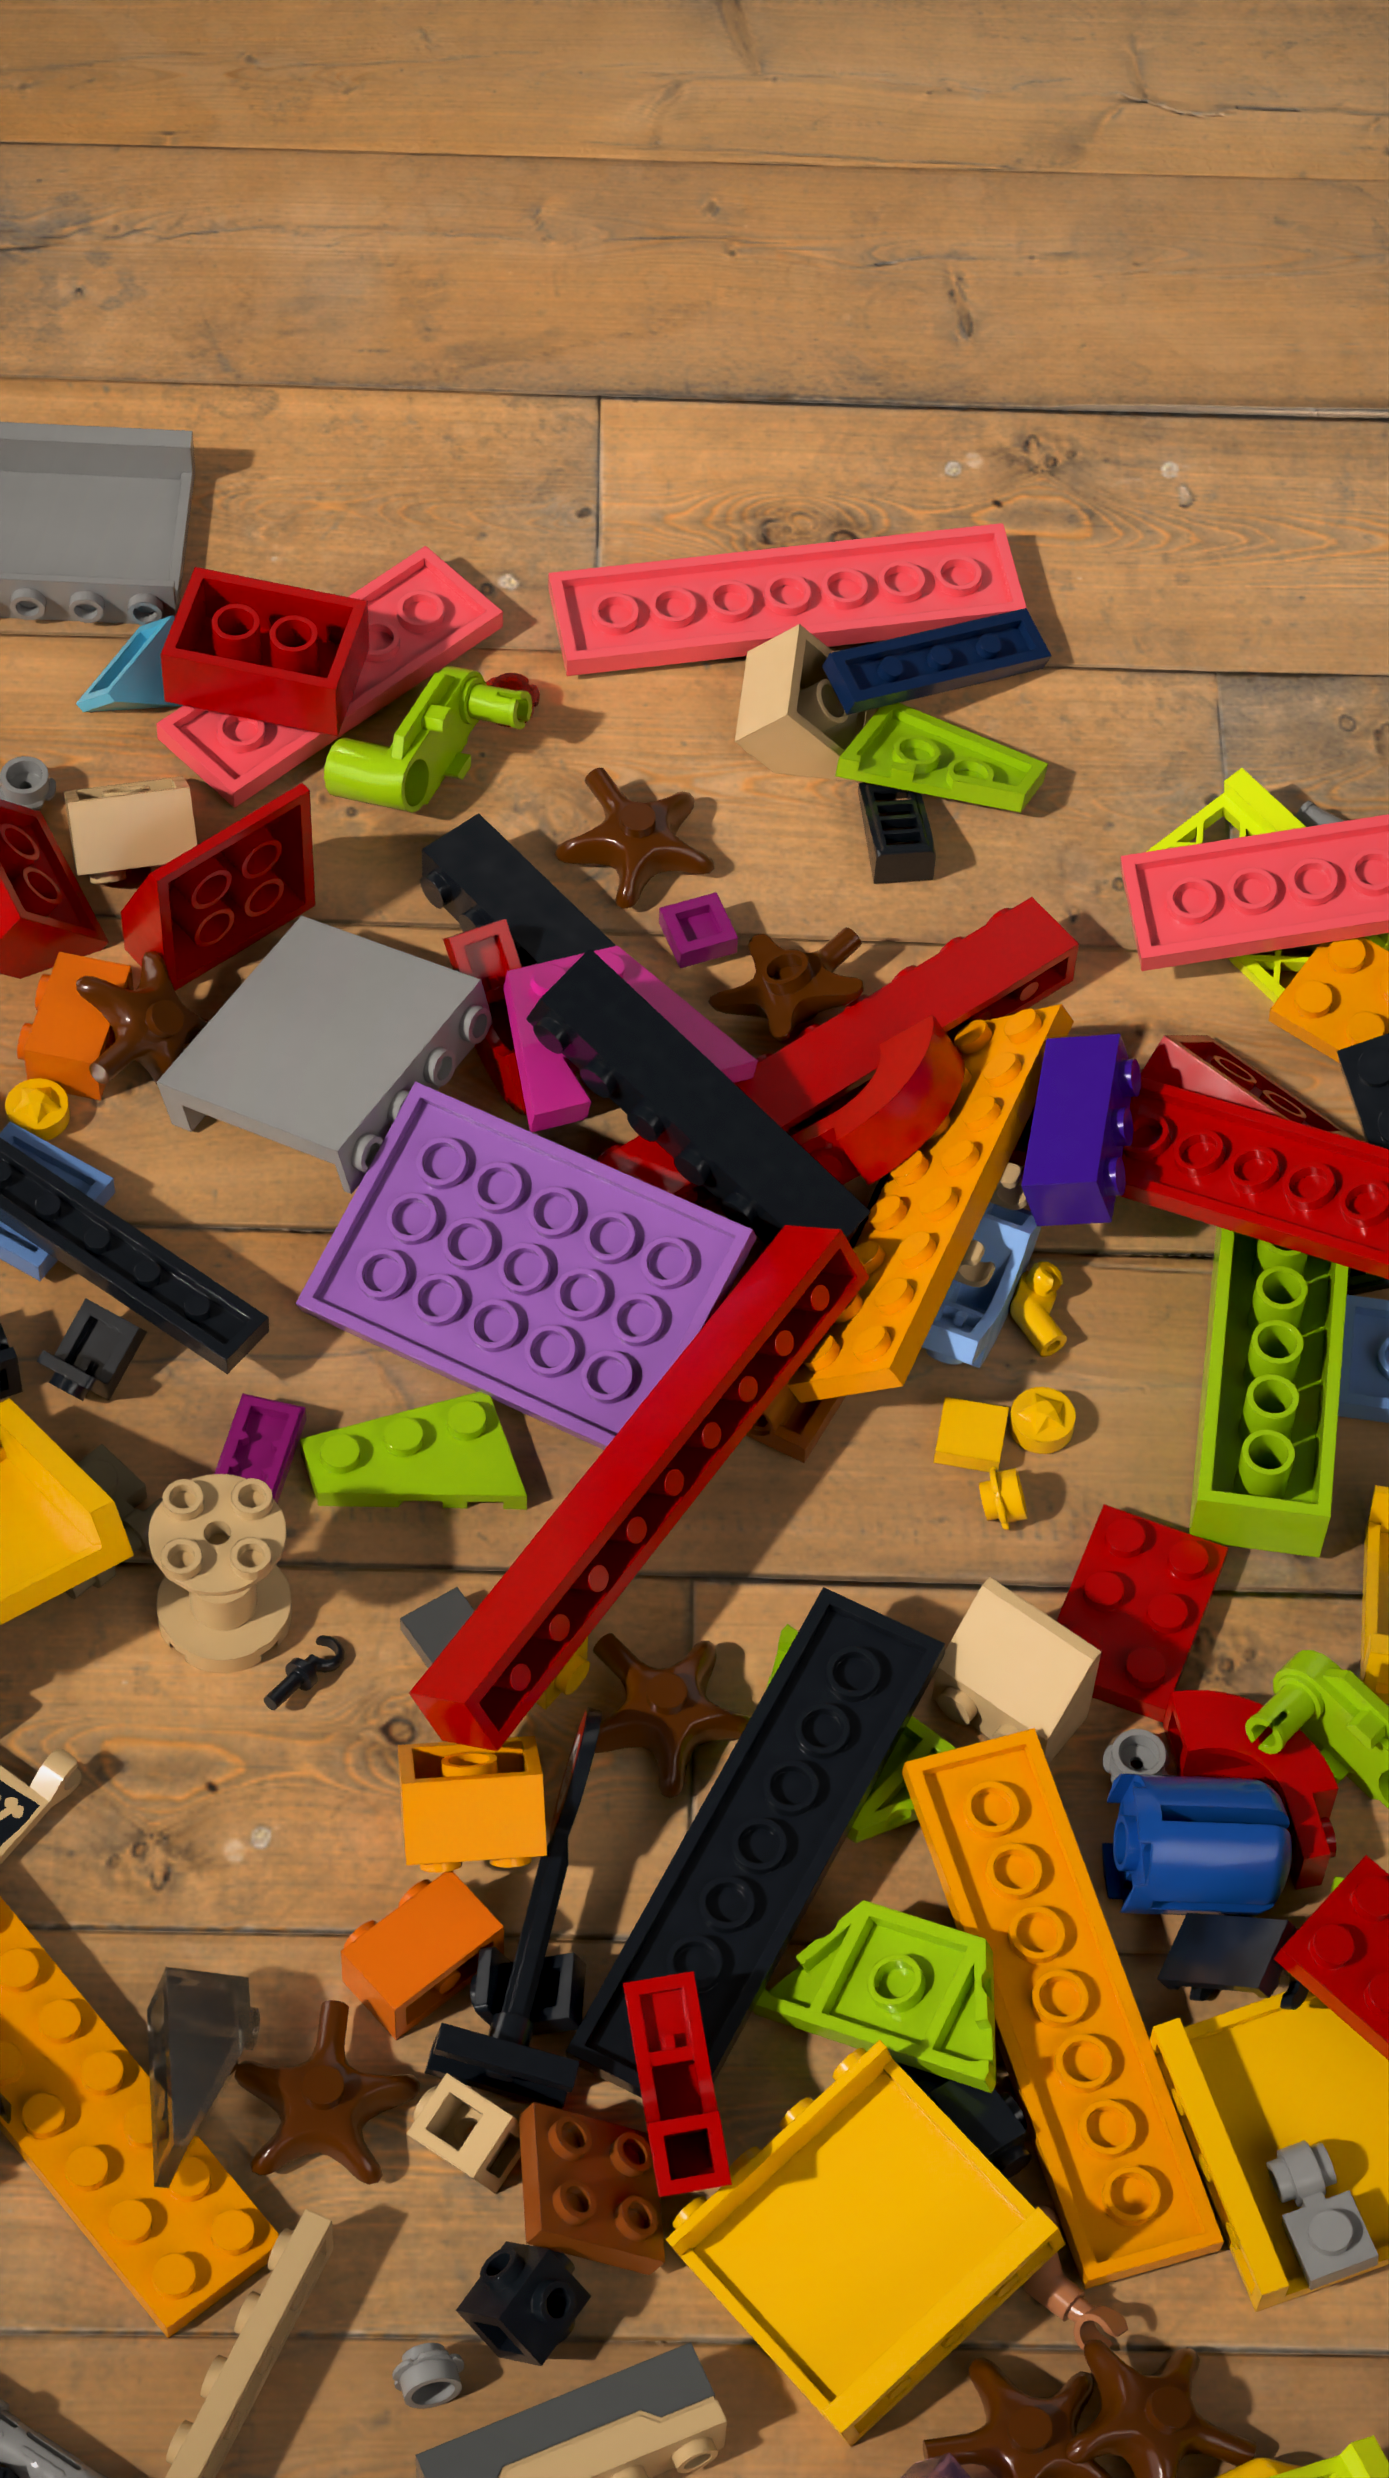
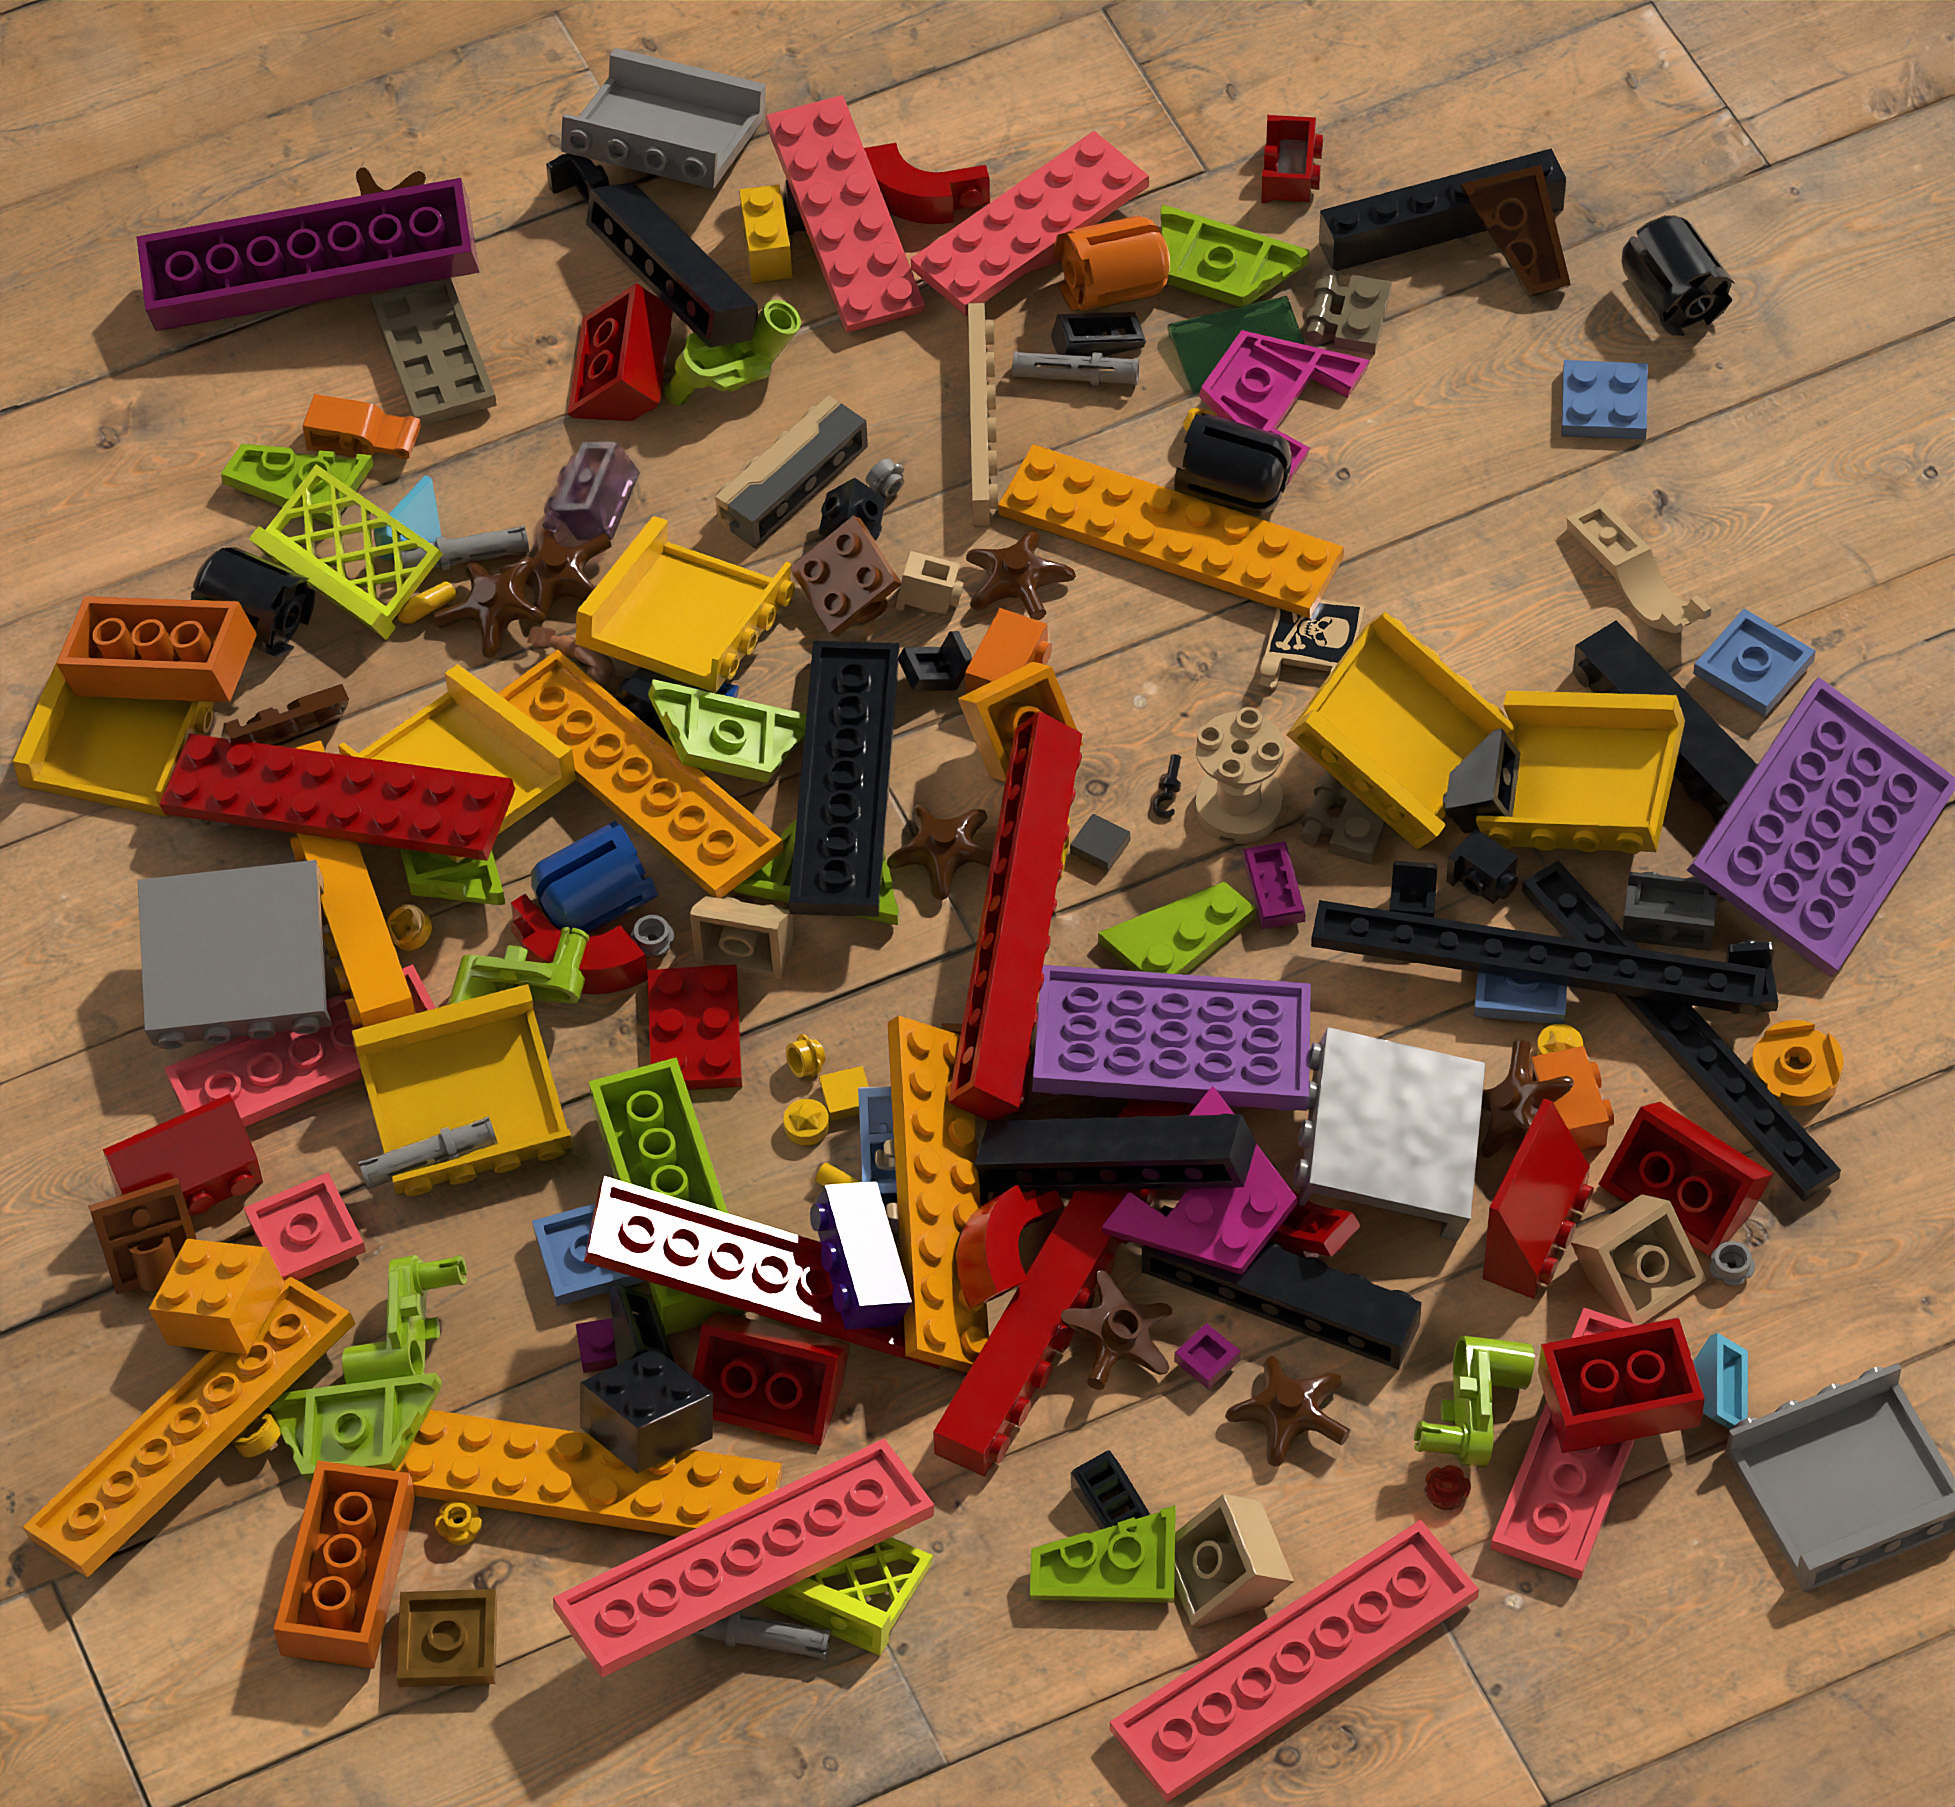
camera: 160 degrees right, 0 degrees up
(195, 2042) = (1091, 548): clear smoke slope -> none
(503, 2058) = (928, 618): black piece -> none
(676, 2084) = (813, 614): red arch -> none
(936, 661) = (1150, 1633): dark blue plate -> none
(1230, 1956) = (540, 820): black hinge -> none
(1324, 2232) = (438, 717): light grey plate -> none

